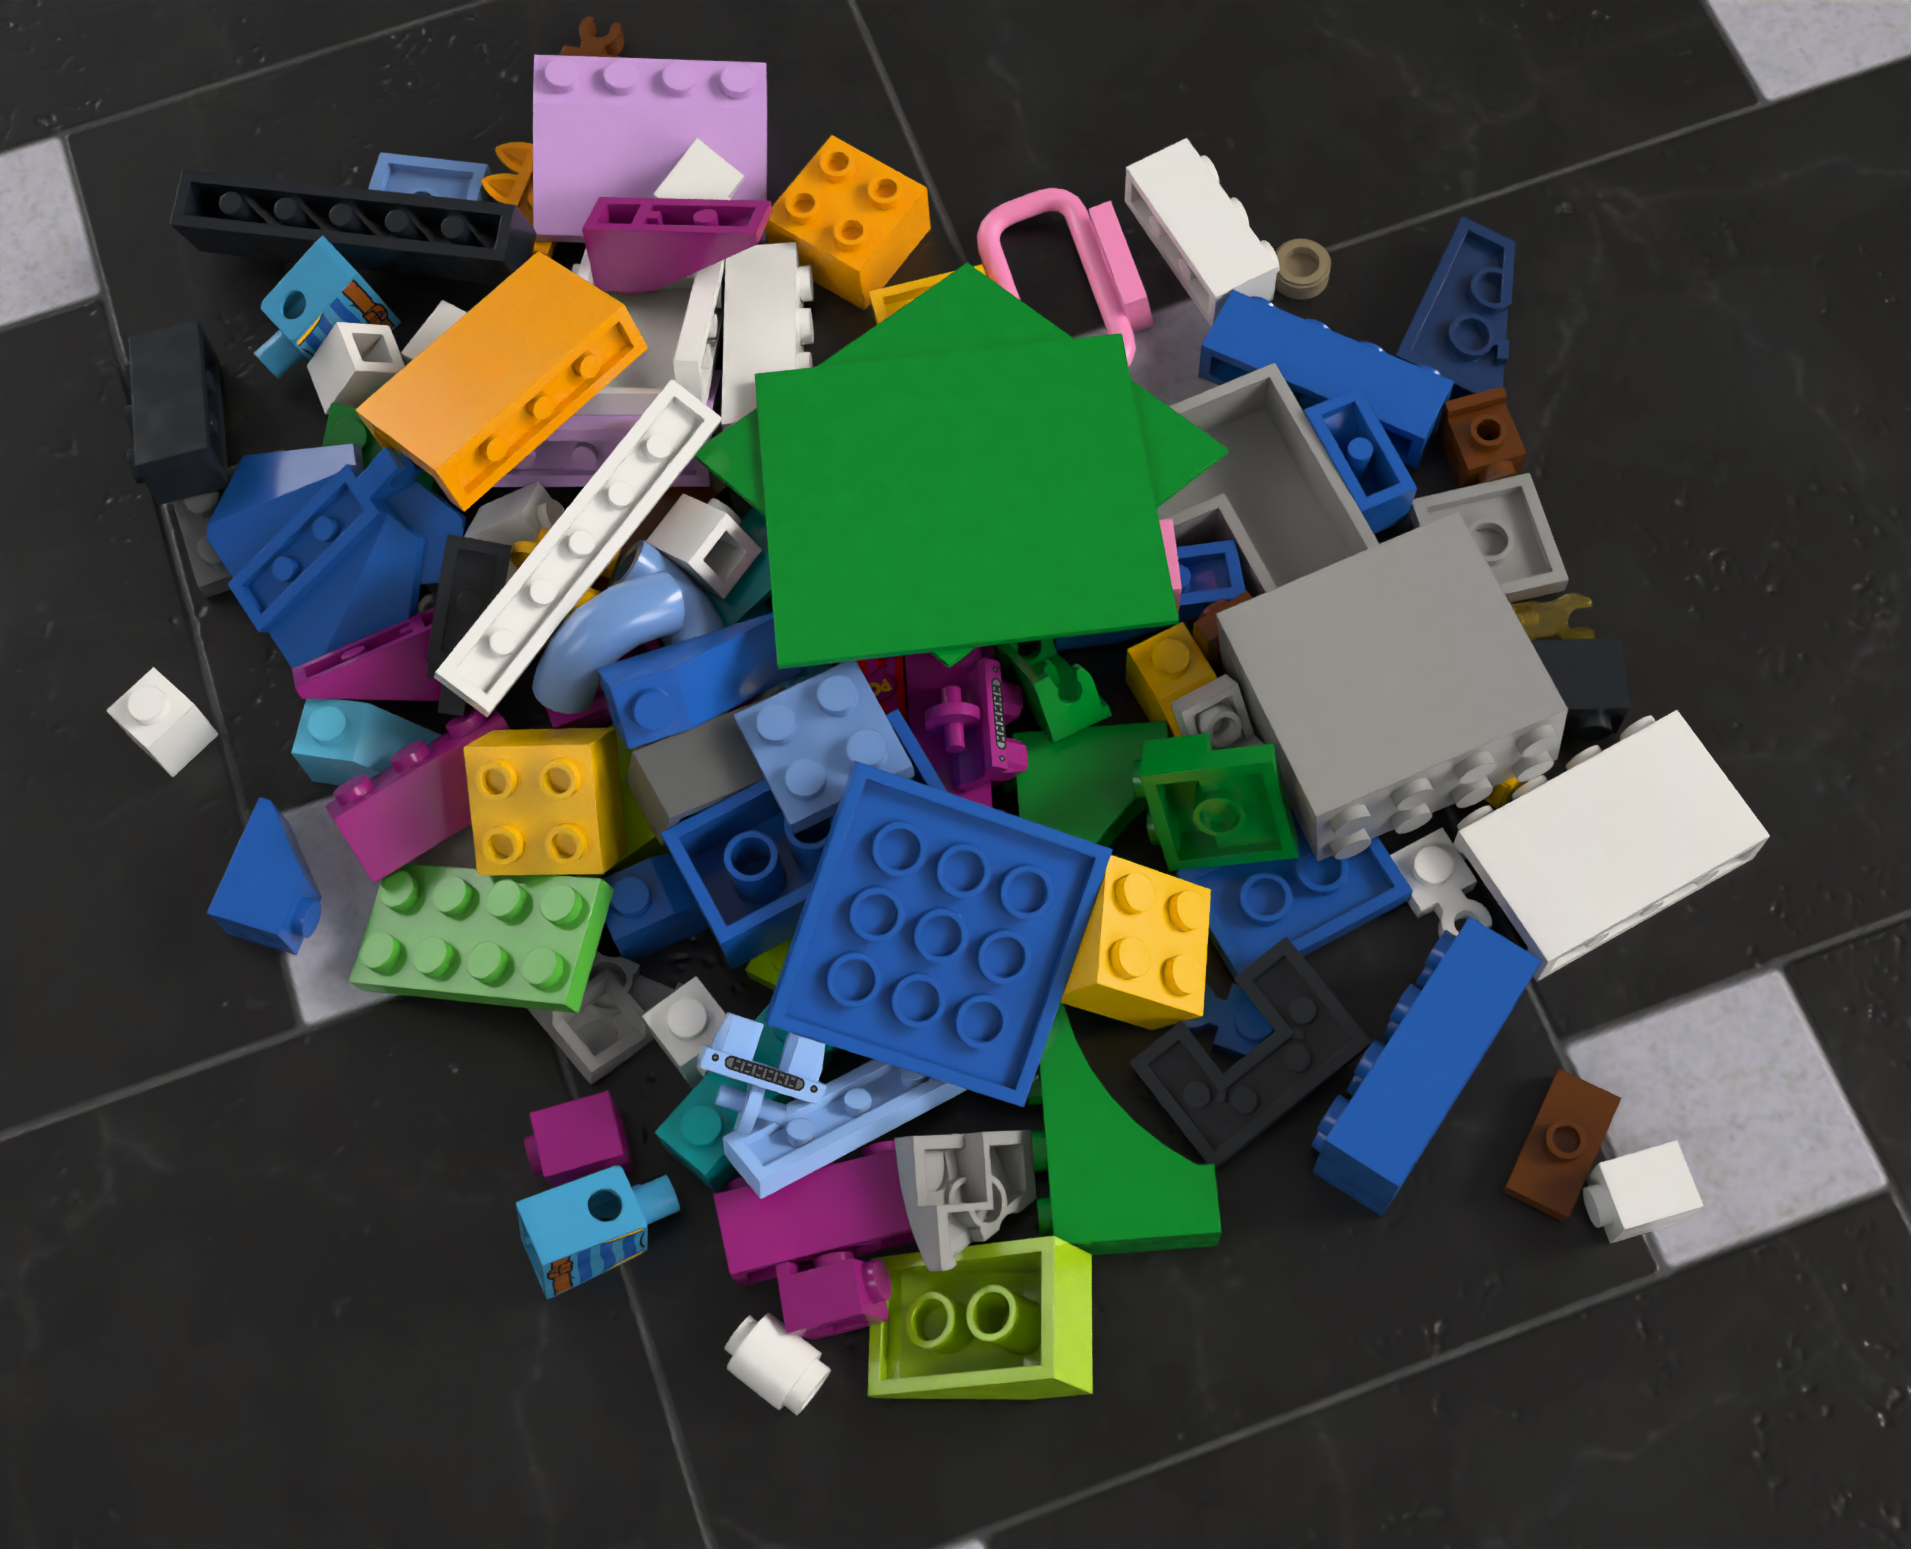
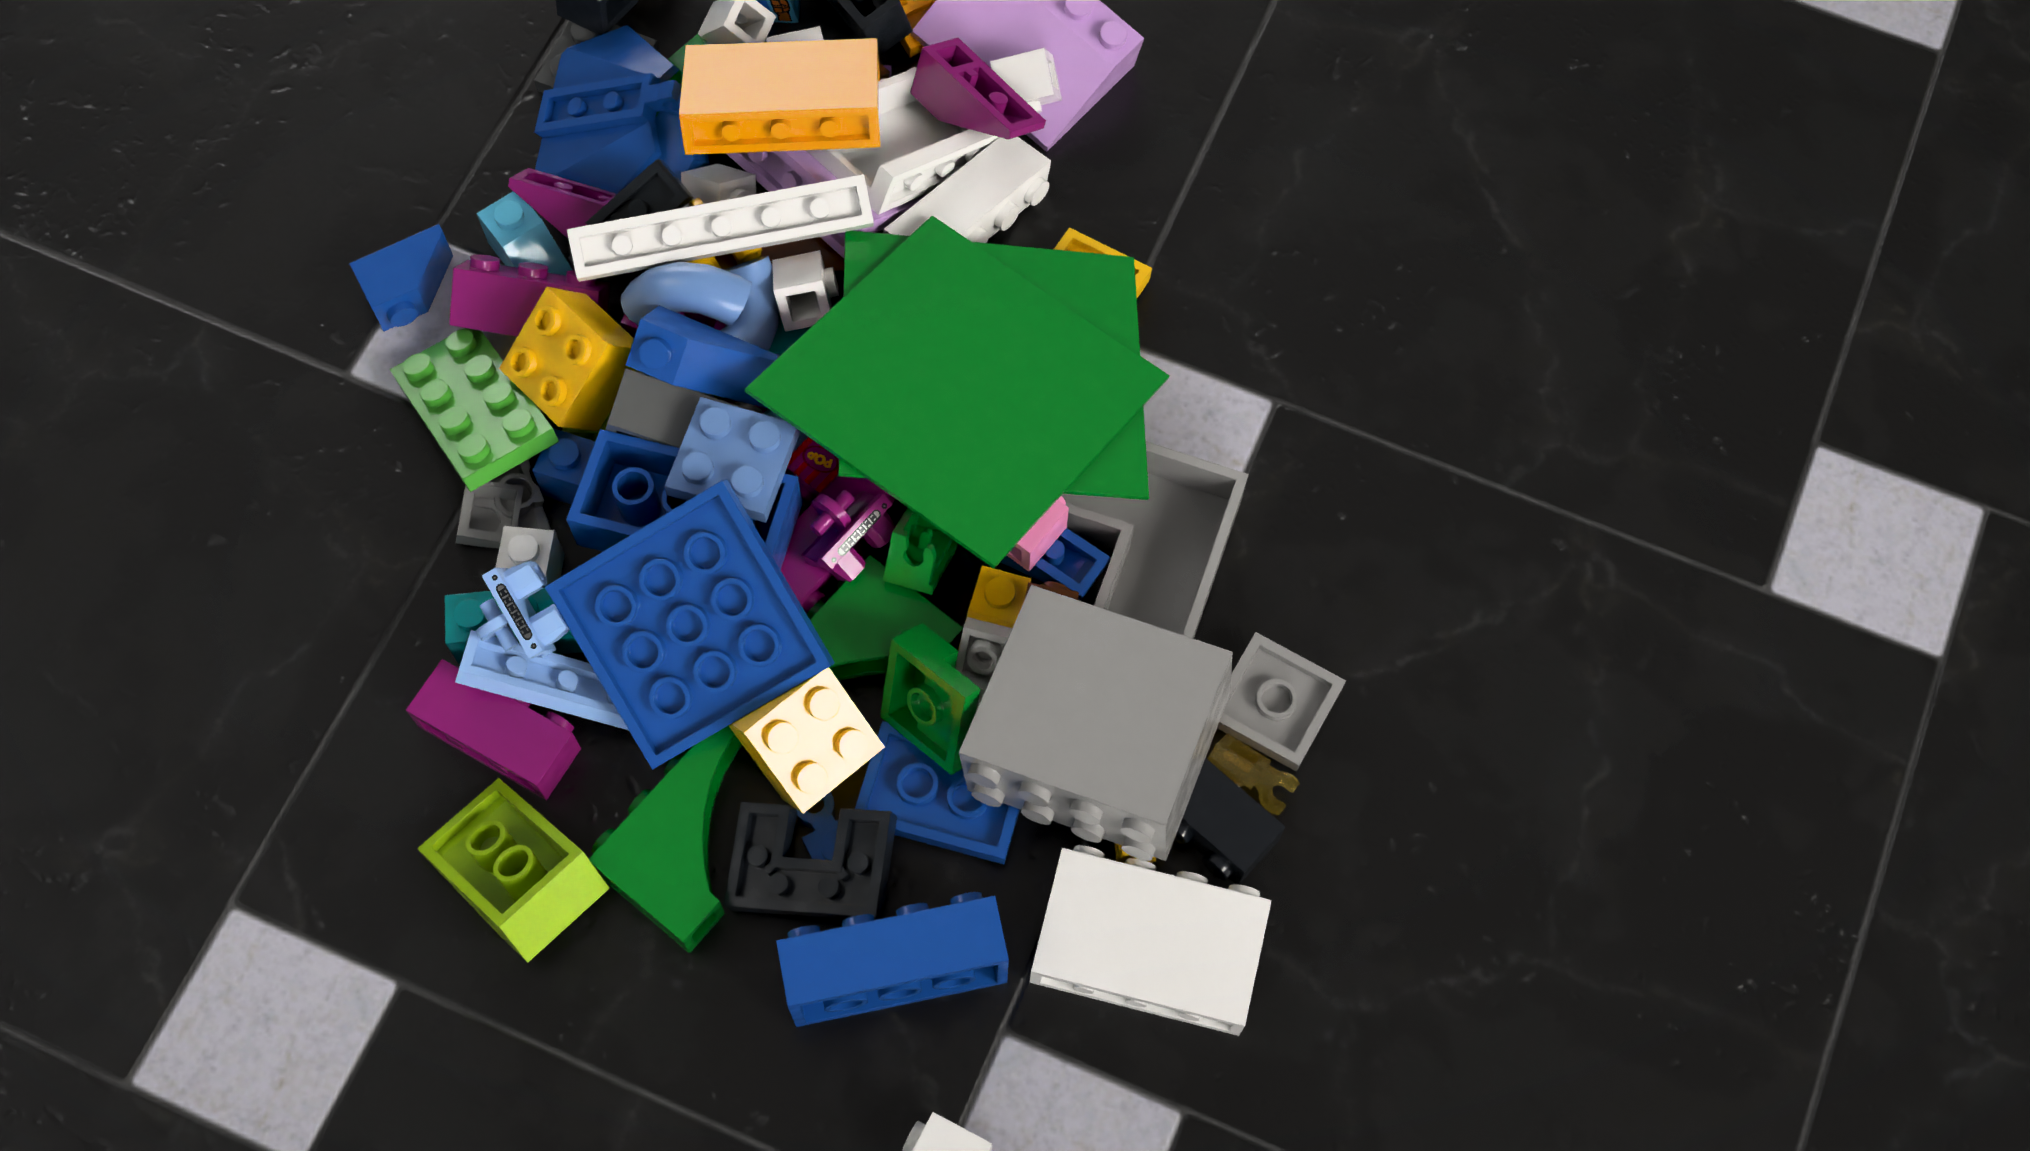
camera: 35 degrees right, 0 degrees up
(163, 722) = (438, 139): white brick -> none
(565, 1231) = (364, 615): dark azure torso -> none
(578, 1139) = (413, 567): magenta brick -> none
(776, 1364) = (387, 783): white brick -> none
(834, 1295) = (449, 774): magenta brick -> none
(850, 220) = (1101, 175): light orange brick -> none
(963, 1188) = (573, 782): light grey slope -> none
(1100, 248) = (1227, 335): bright pink bar -> none
(1199, 228) = (1306, 362): white brick -> none
(1302, 269) = (1347, 437): dark tan tile -> none
(1324, 365) = (1286, 515): blue brick -> none
(1364, 458) = (1240, 580): blue slope -> none
(1439, 881) = (1030, 868): white plate -> none
(1465, 311) = (1411, 552): dark blue wing -> none
(1480, 438) = (1348, 620): reddish brown brick -> none
(1561, 1145) = (937, 1086): reddish brown plate -> none

